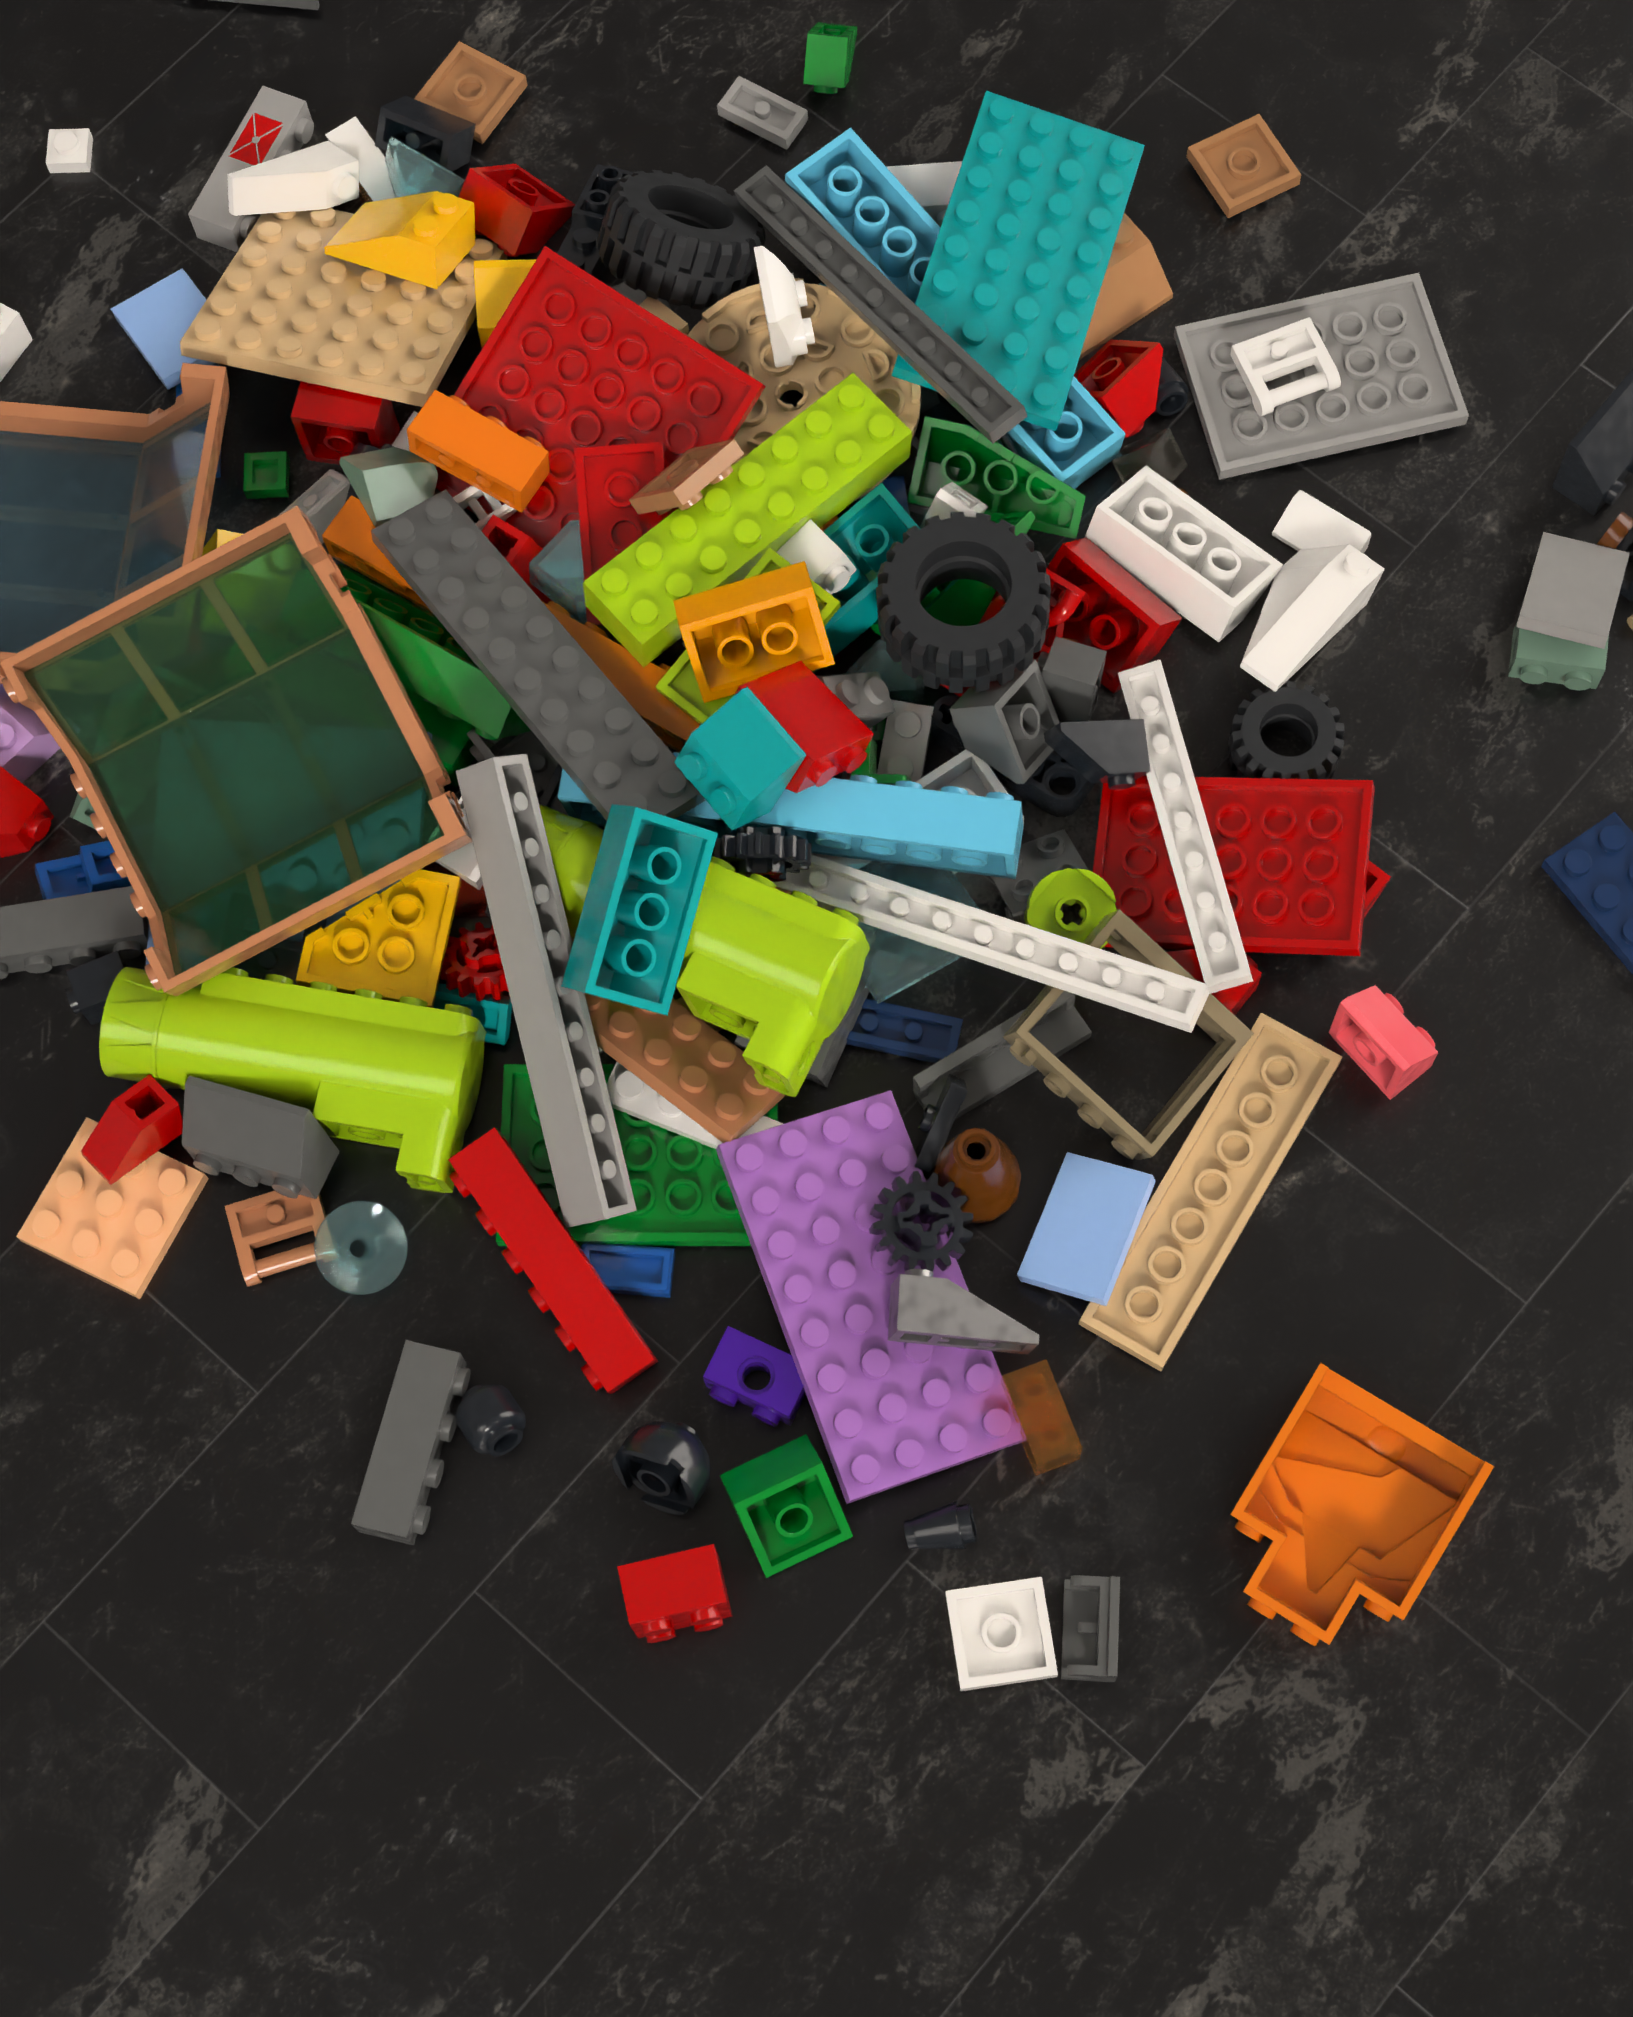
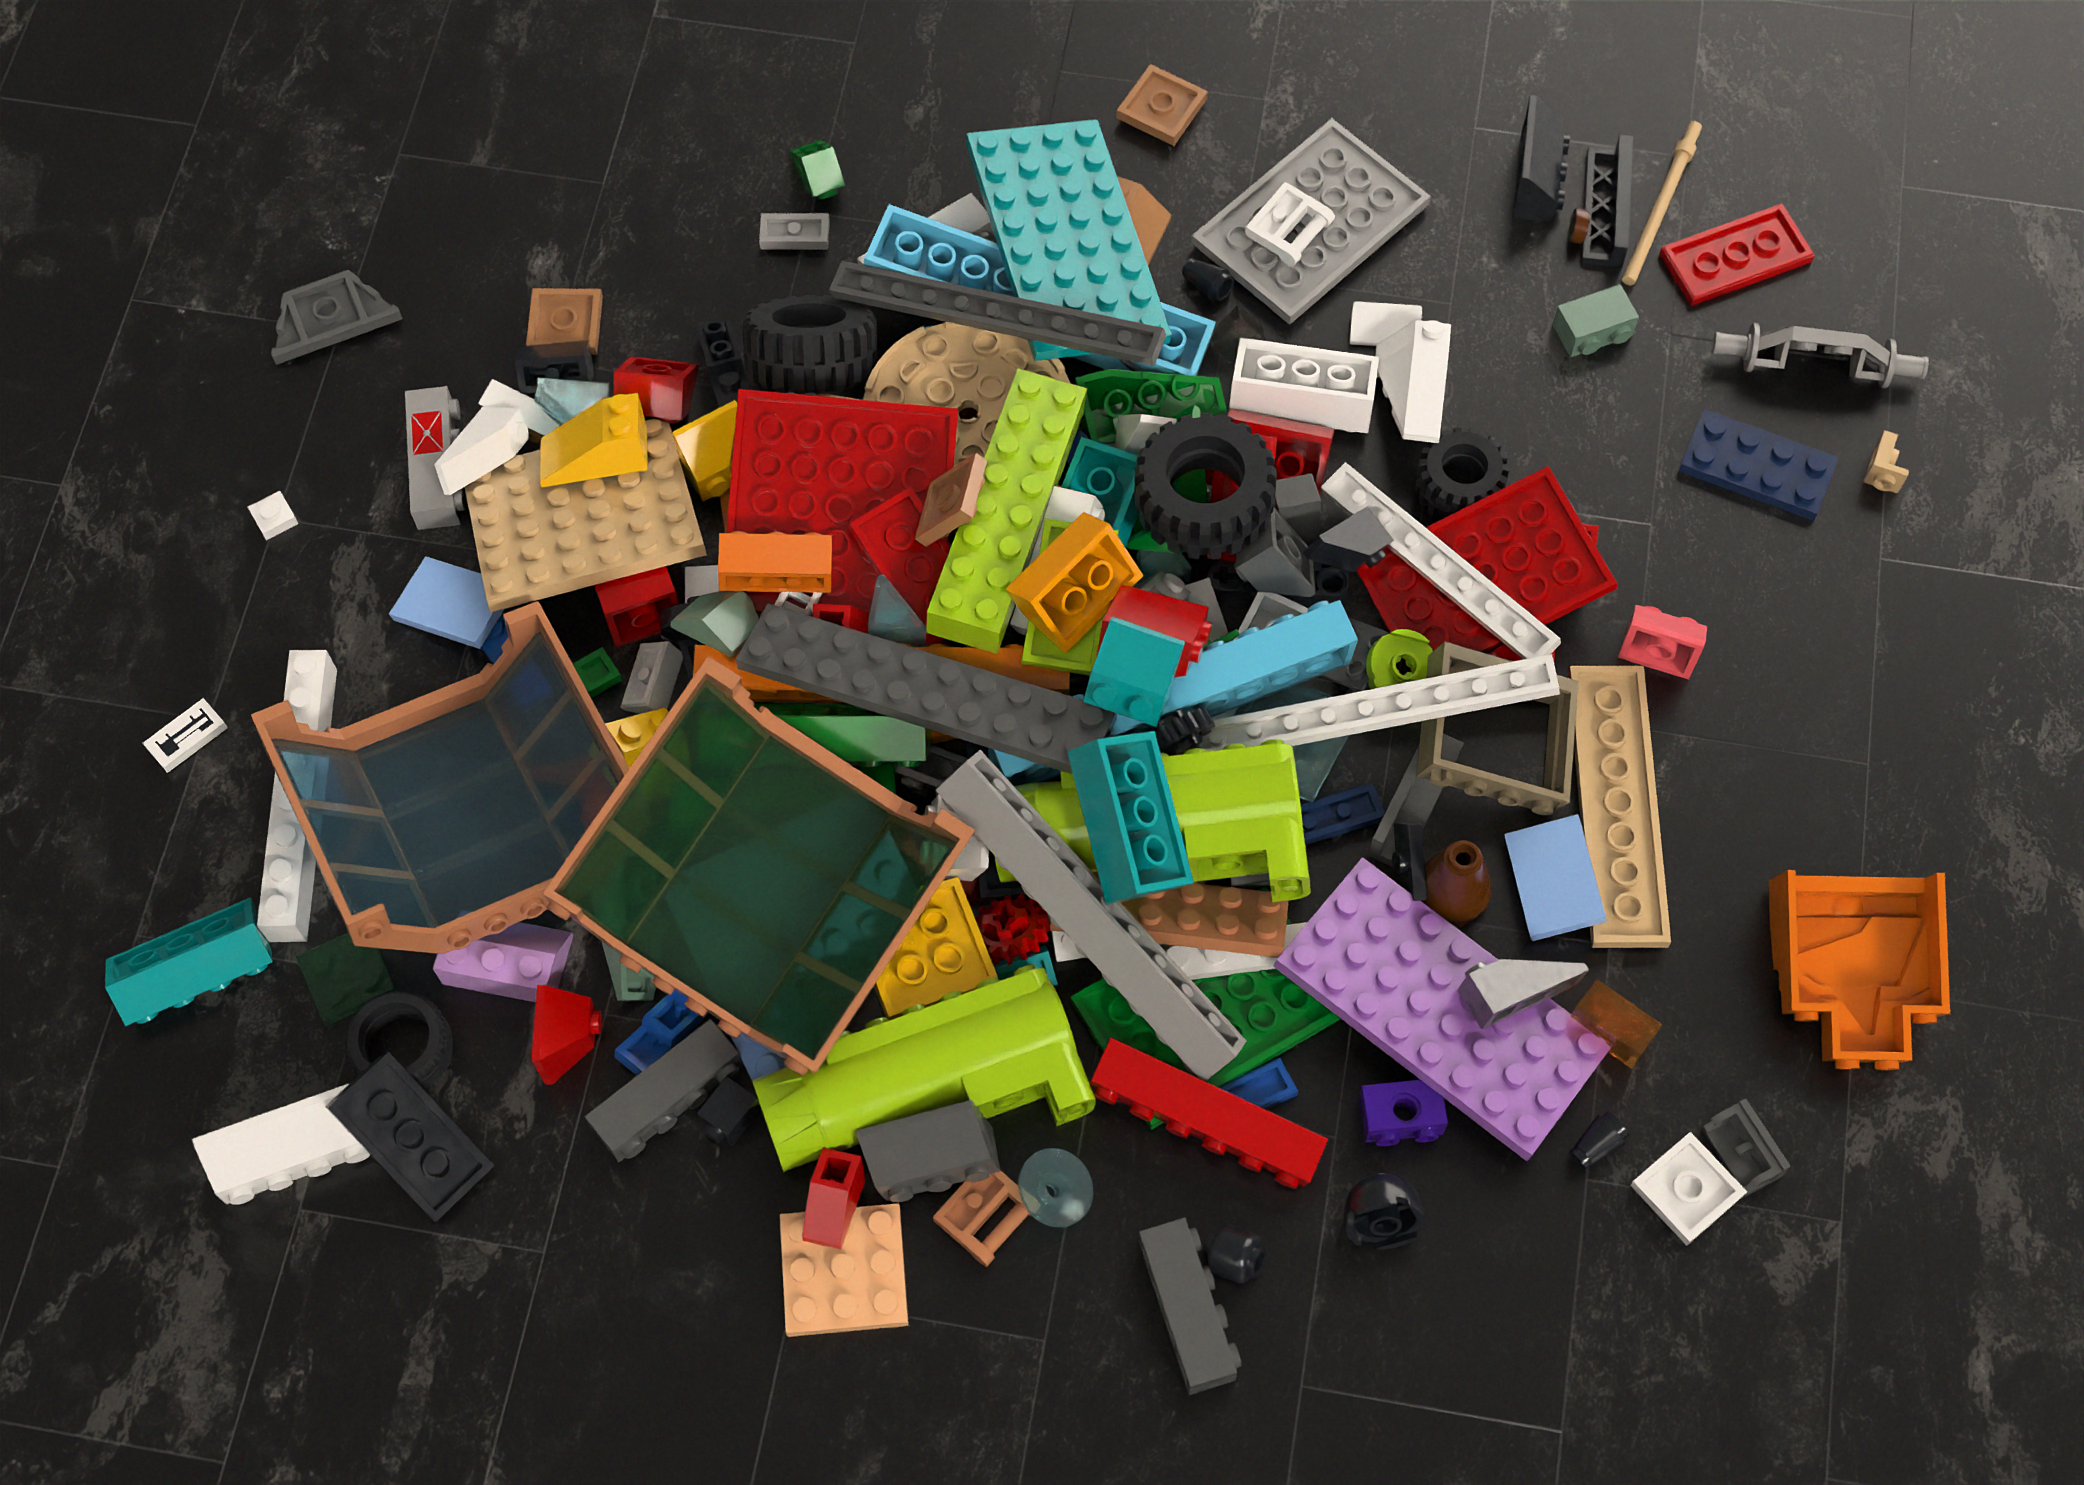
camera: 35 degrees left, 5 degrees down
(675, 1593) = (1454, 1292): red brick -> none
(782, 304) = (929, 352): white slope -> none
(786, 1505) = (1483, 1188): green slope -> none
(920, 1204) = (1445, 919): black gear -> none
(1124, 381) = (1186, 284): red slope -> none
(1573, 590) = (1582, 275): light grey tile -> none

